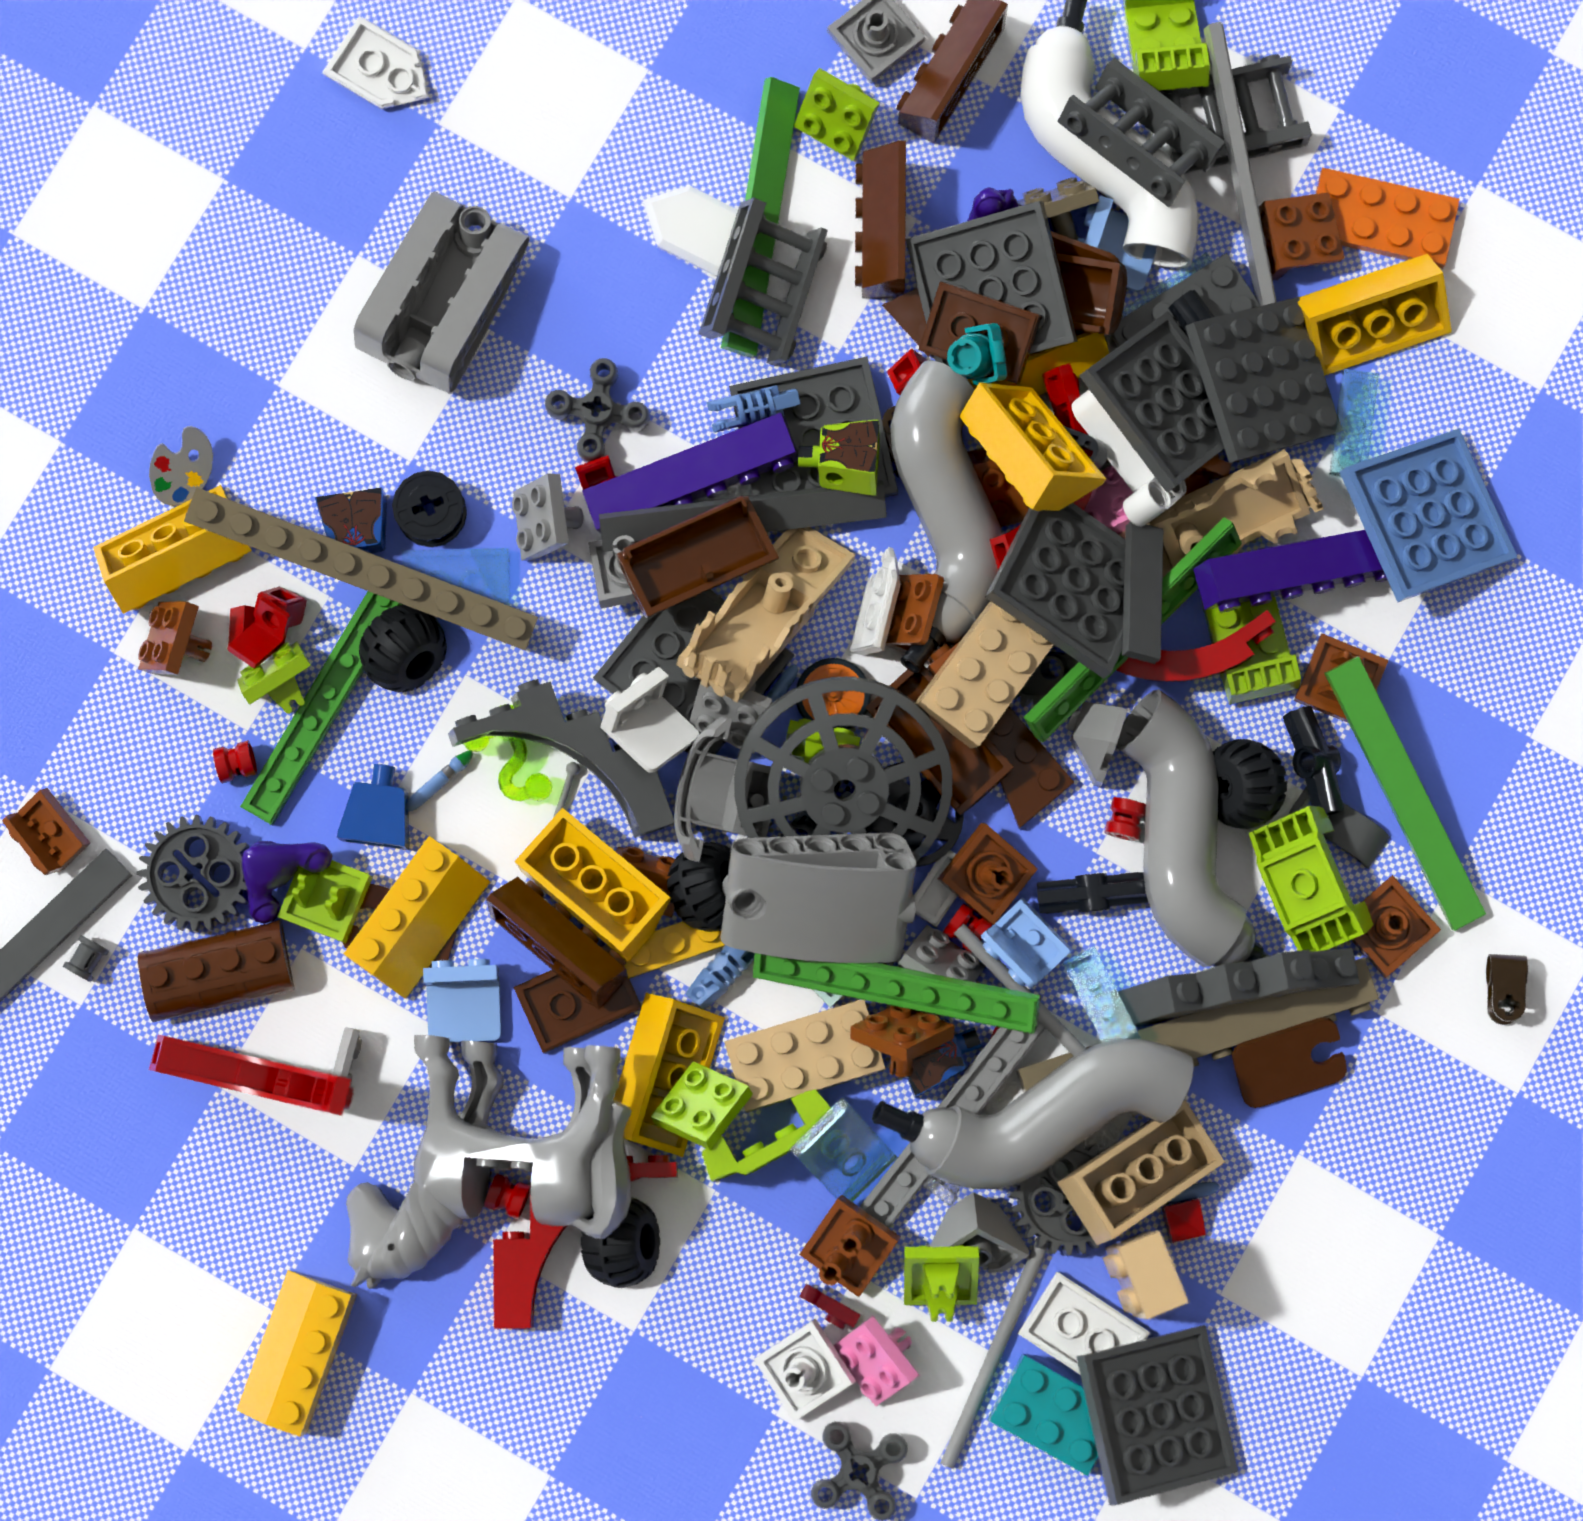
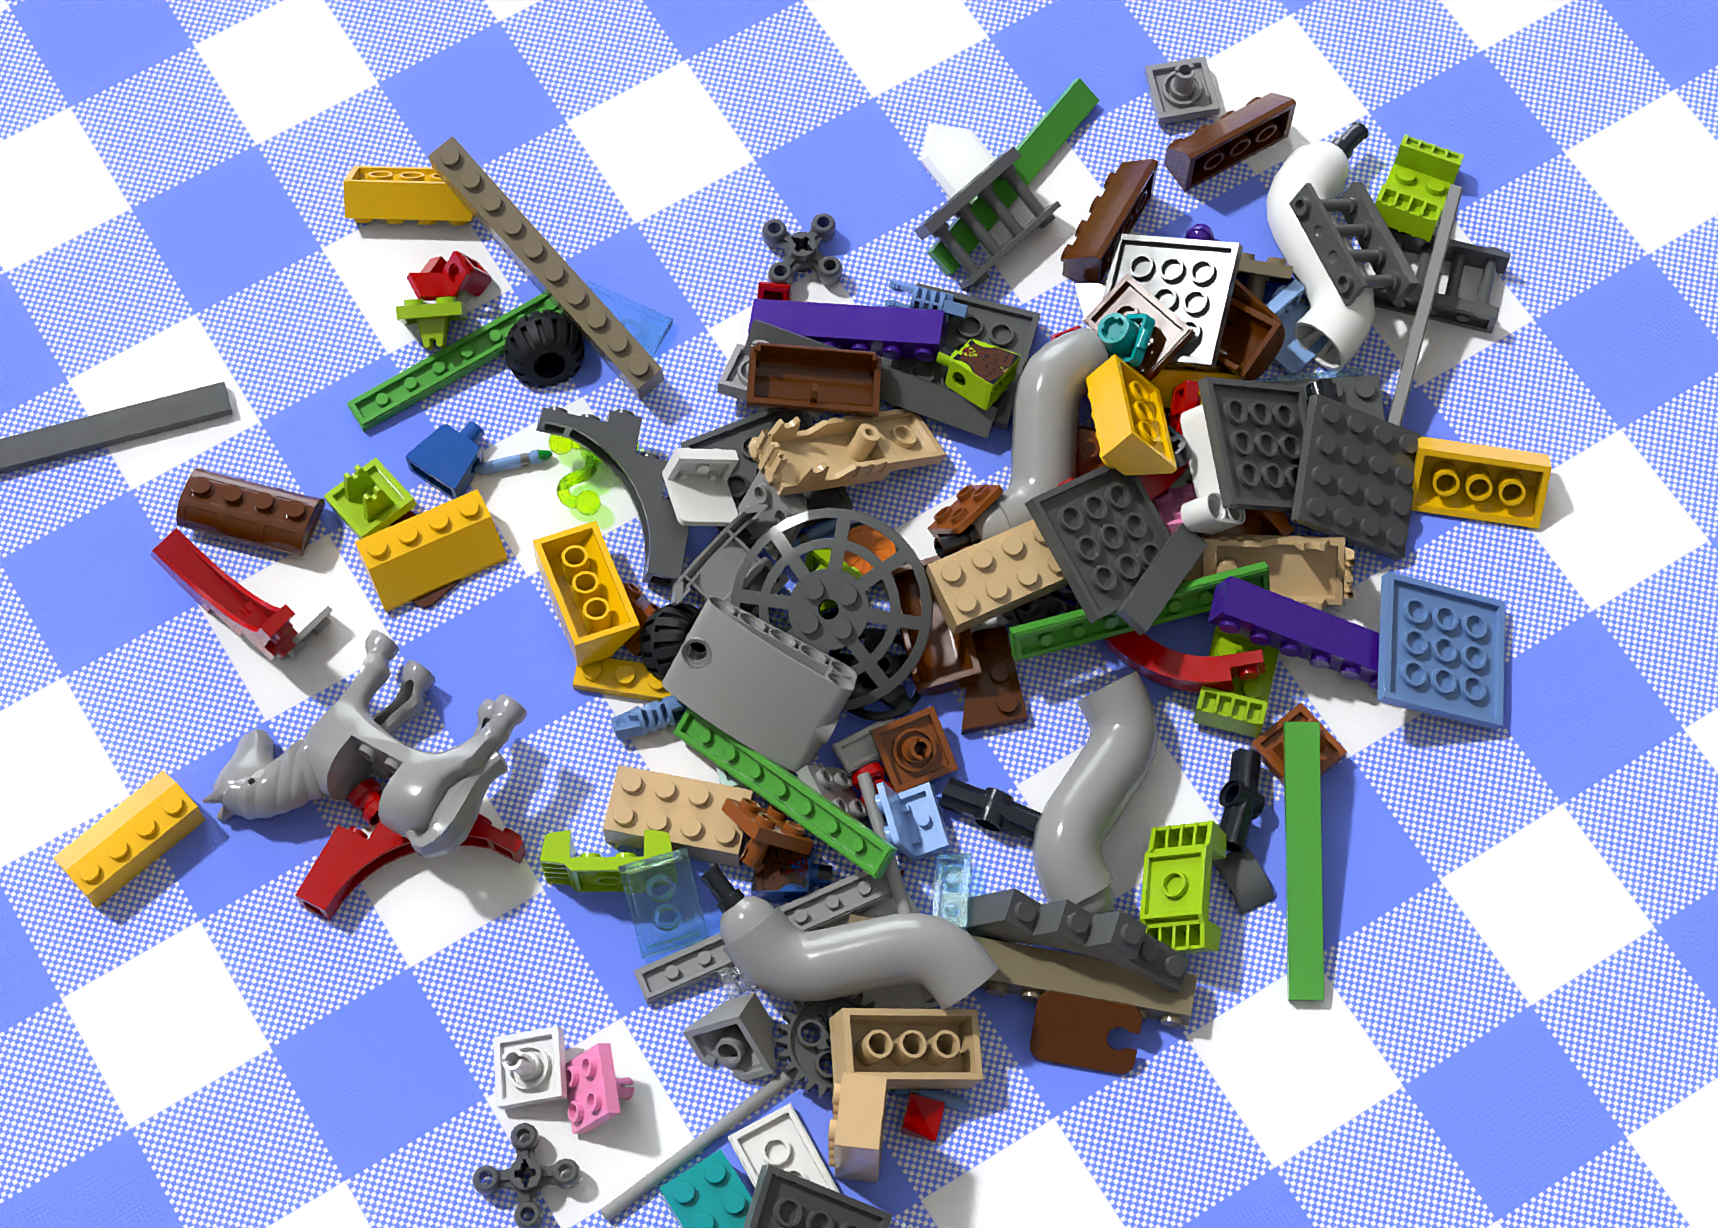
camera: 25 degrees right, 15 degrees down
(46, 833) = (186, 347): dark orange bracket -> none
(85, 958) = (156, 446): dark grey bush -> none
(171, 639) = (370, 252): dark orange plate -> none
(173, 896) = (251, 442): dark grey gear -> none
(174, 474) = (445, 127): light grey piece -> none
(235, 761) = (362, 367): red wheel -> none
(272, 866) = (338, 452): dark purple head -> none
(355, 518) = (569, 235): torso -> none
(440, 293) = (728, 109): light grey panel -> none
(447, 502) = (630, 243): black piece -> none
(463, 1000) = (431, 630): light blue bracket -> none
(542, 517) = (712, 305): light grey plate -> none
(557, 941) = (531, 621): reddish brown slope -> none
(562, 1014) = (531, 676): reddish brown tile -> none
(572, 770) = (623, 506): light grey hinge -> none
(628, 1252) = (441, 888): black wheel -> none
(661, 1049) = (557, 772): yellow slope -> none
(701, 1105) = (569, 803): lime plate -> none
(836, 114) = (1116, 126): lime plate -> none
(838, 1313) = (585, 1035): dark red plate -> none
(849, 1246) = (626, 986): dark orange plate -> none
(877, 607) = (940, 499): white tile -> none
(941, 1278) = (687, 1049): lime plate -> none
(1096, 736) = (1064, 685): light grey slope -> none
(1125, 819) = (1053, 767): red wheel -> none
(1248, 783) = (1172, 786): black wheel -> none
(1300, 233) = (1446, 387): dark orange bracket -> none
(1354, 419) = (1422, 547): clear light blue plate -> none
(1390, 216) = (1525, 413): orange plate -> none
(1397, 928) = (1236, 970): dark orange plate -> none
(1506, 980) = (1311, 1066): dark brown piece -> none

